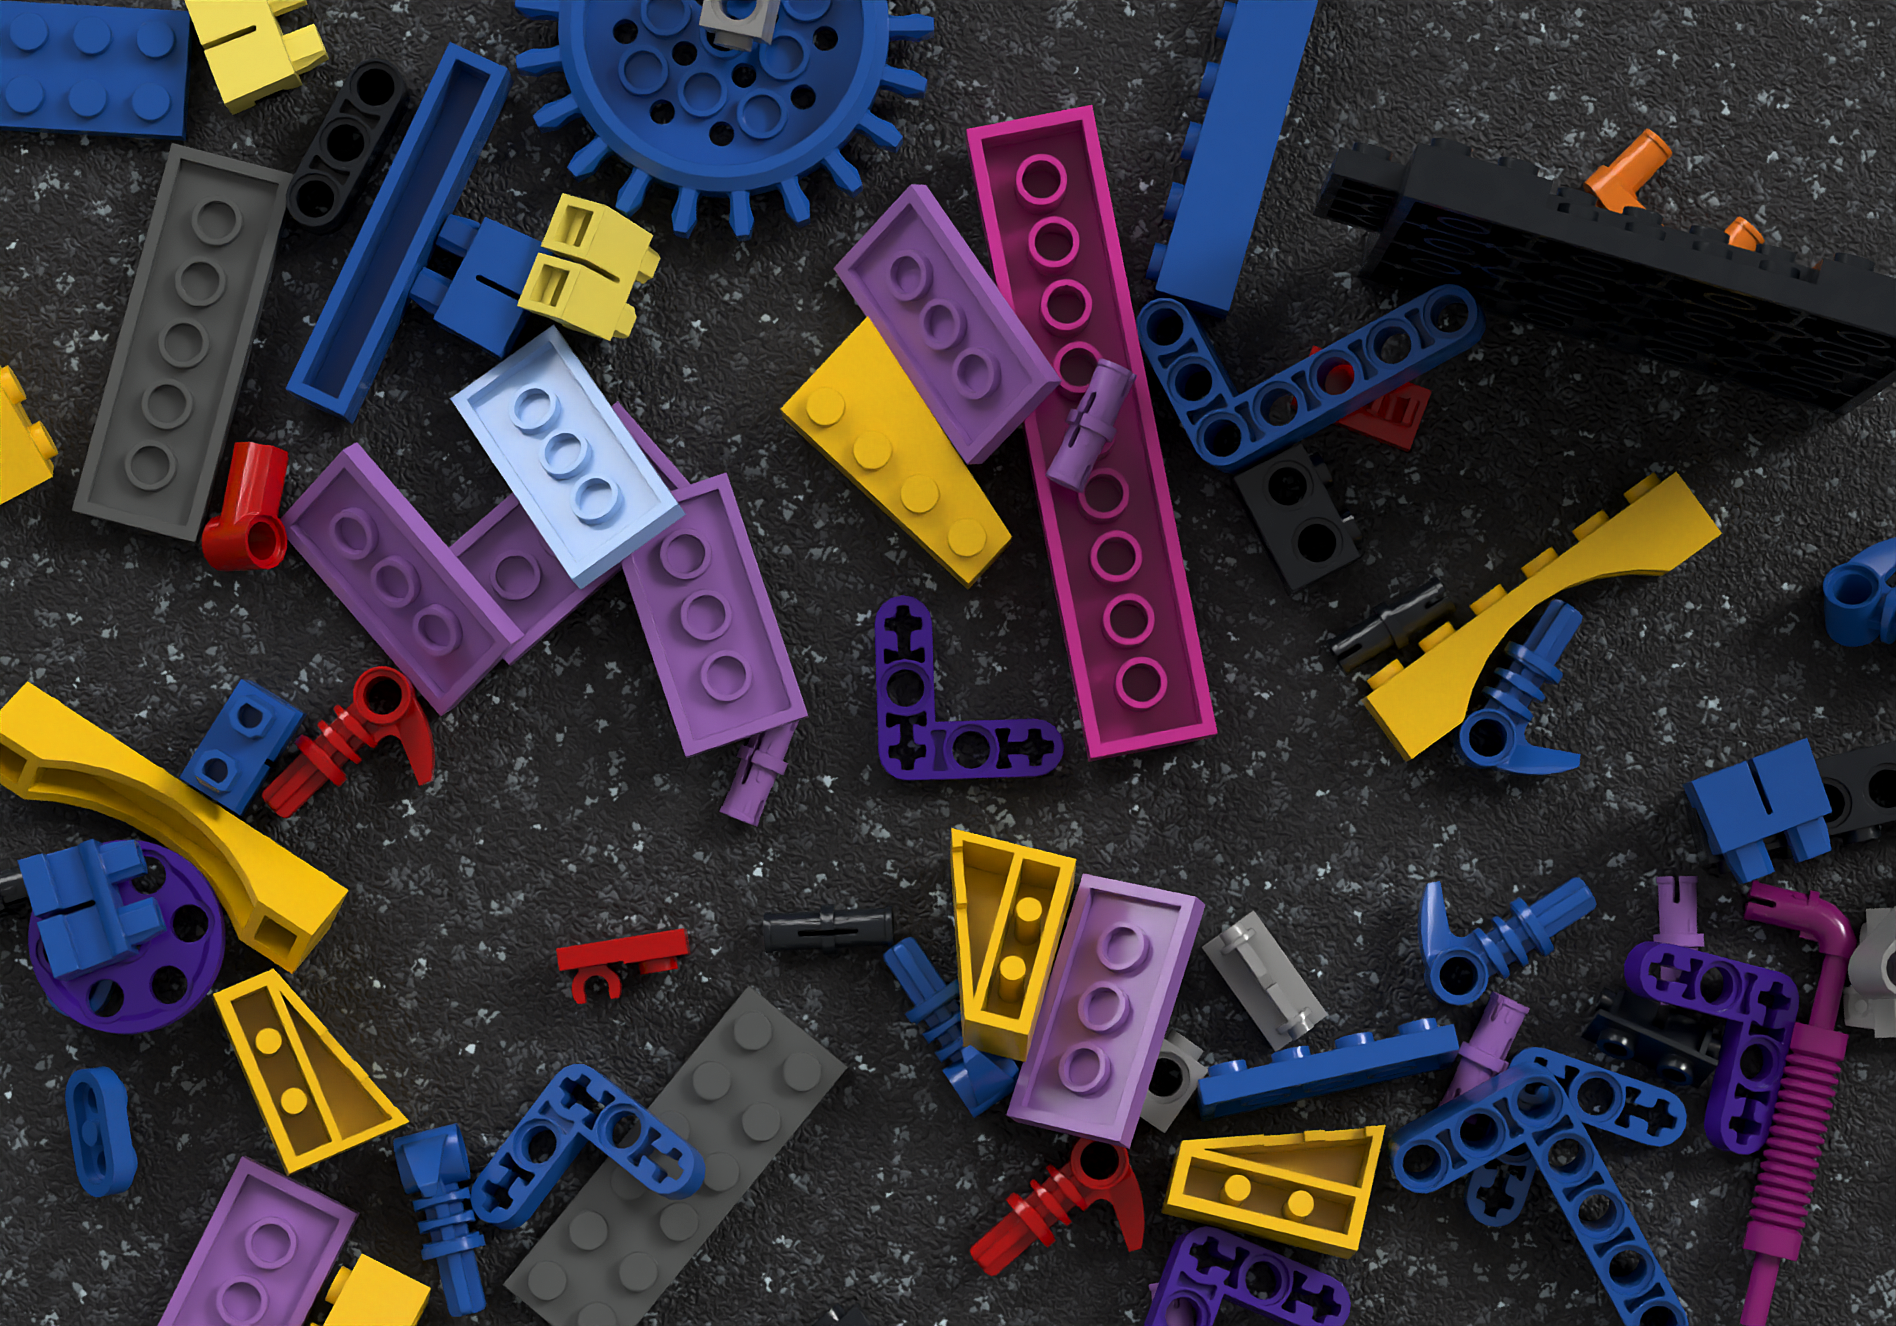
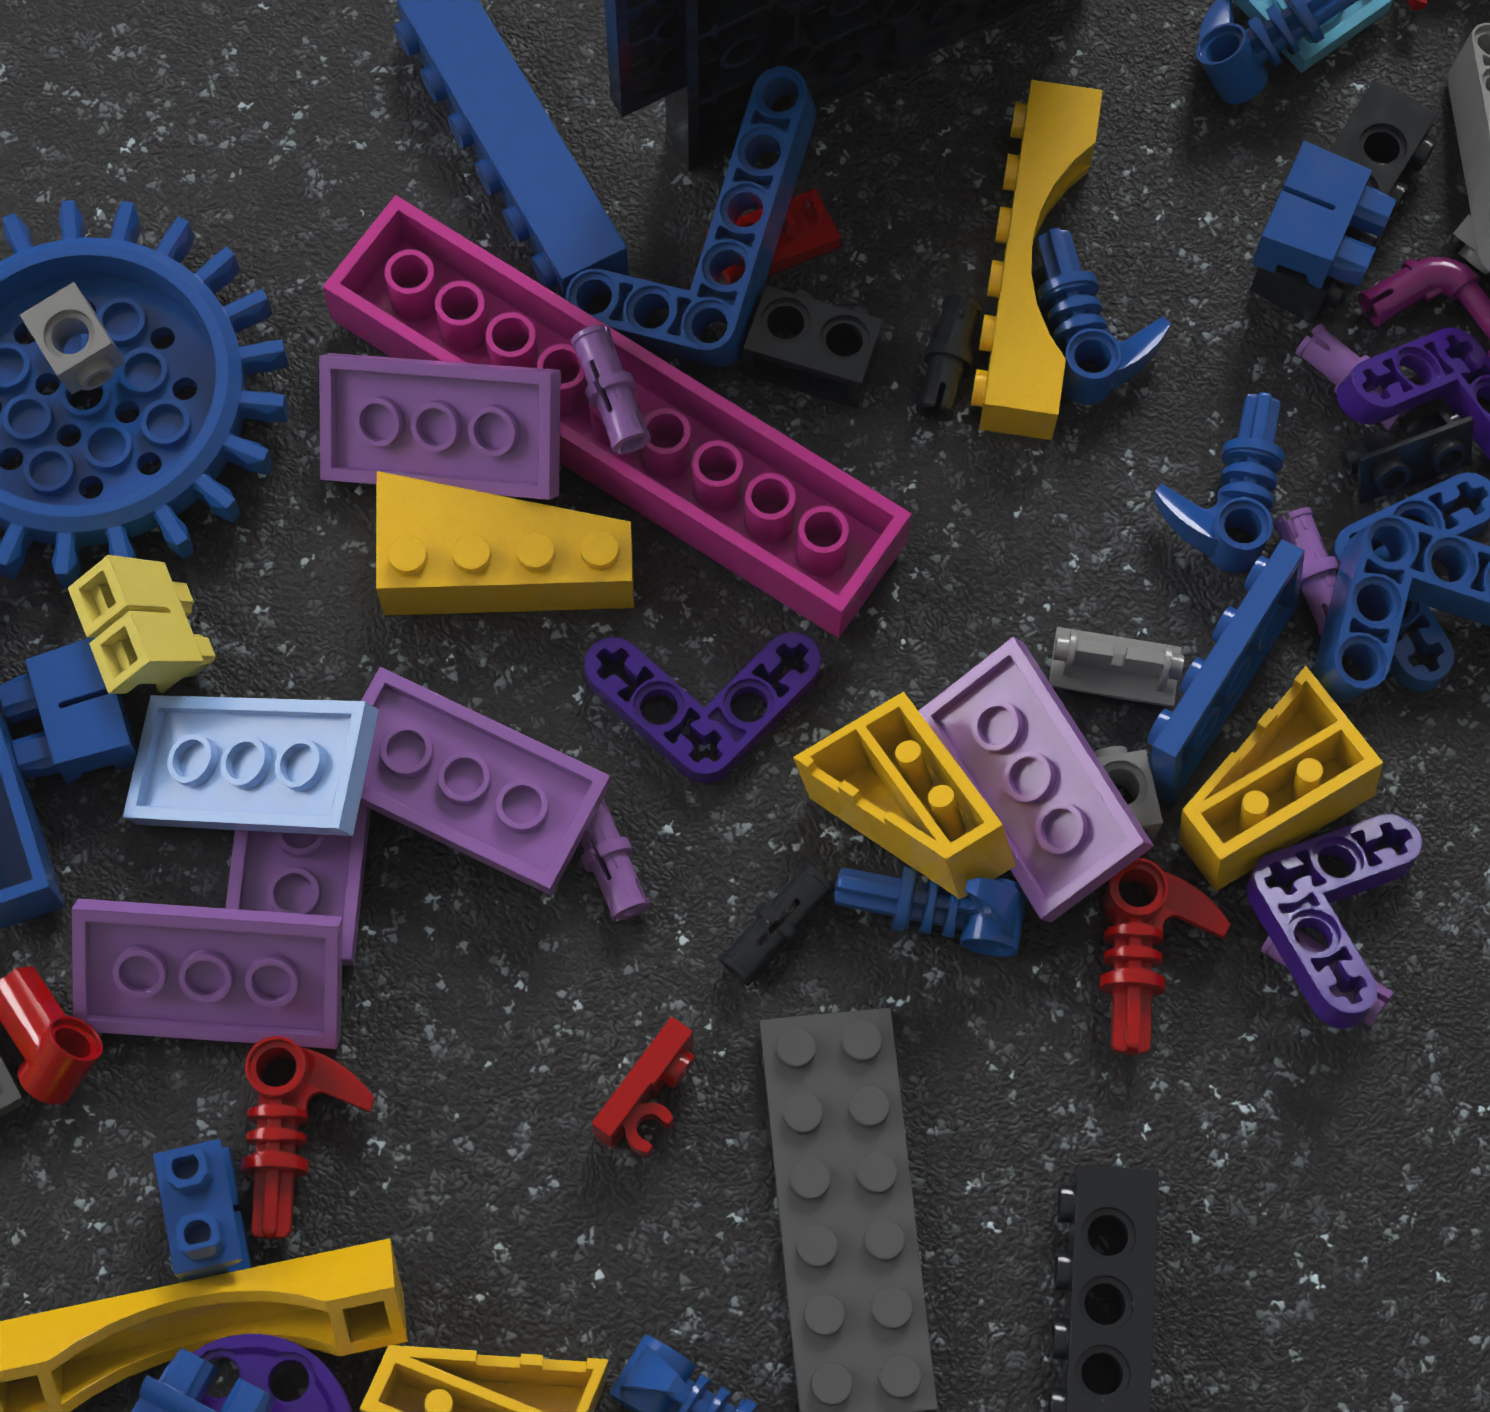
camera: 45 degrees left, 15 degrees down
(573, 1128) = (737, 1251): blue beam -> none

